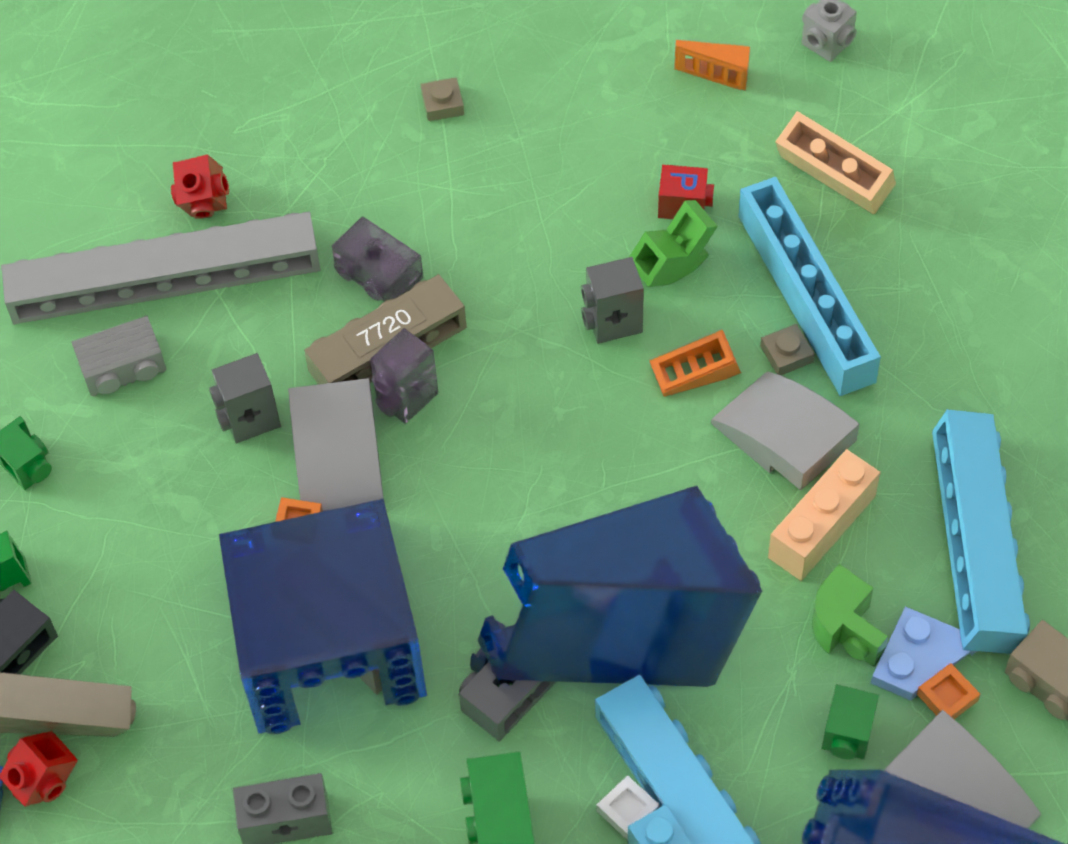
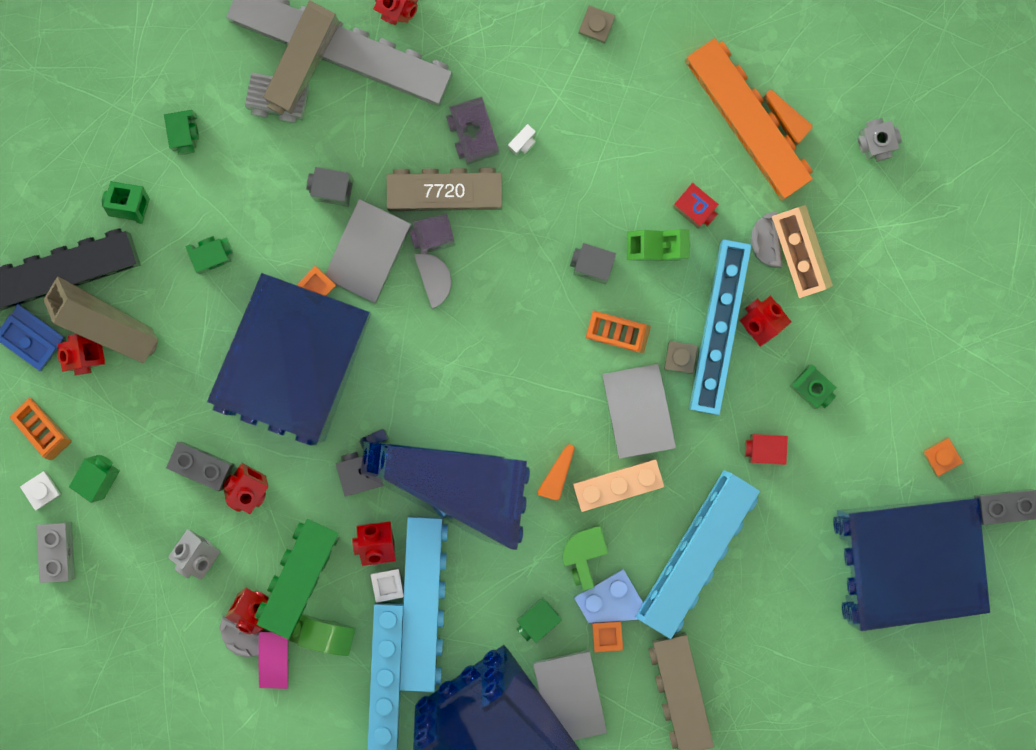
camera: 30 degrees right, 30 degrees up
(121, 273) = (301, 58): none -> dark tan slope
(139, 564) = (209, 254): none -> green brick
(361, 799) = (245, 489): none -> red brick
(436, 434) = (435, 278): none -> light grey tile
(440, 240) = (523, 141): none -> white plate
(576, 761) = (375, 543): none -> red brick
(676, 87) = (748, 118): none -> orange brick
(745, 538) = (555, 480): none -> orange slope
(799, 191) = (766, 241): none -> light grey tile
(862, 243) = (764, 320): none -> red brick
(961, 288) = (804, 383): none -> green brick
(963, 376) = (767, 449): none -> red brick

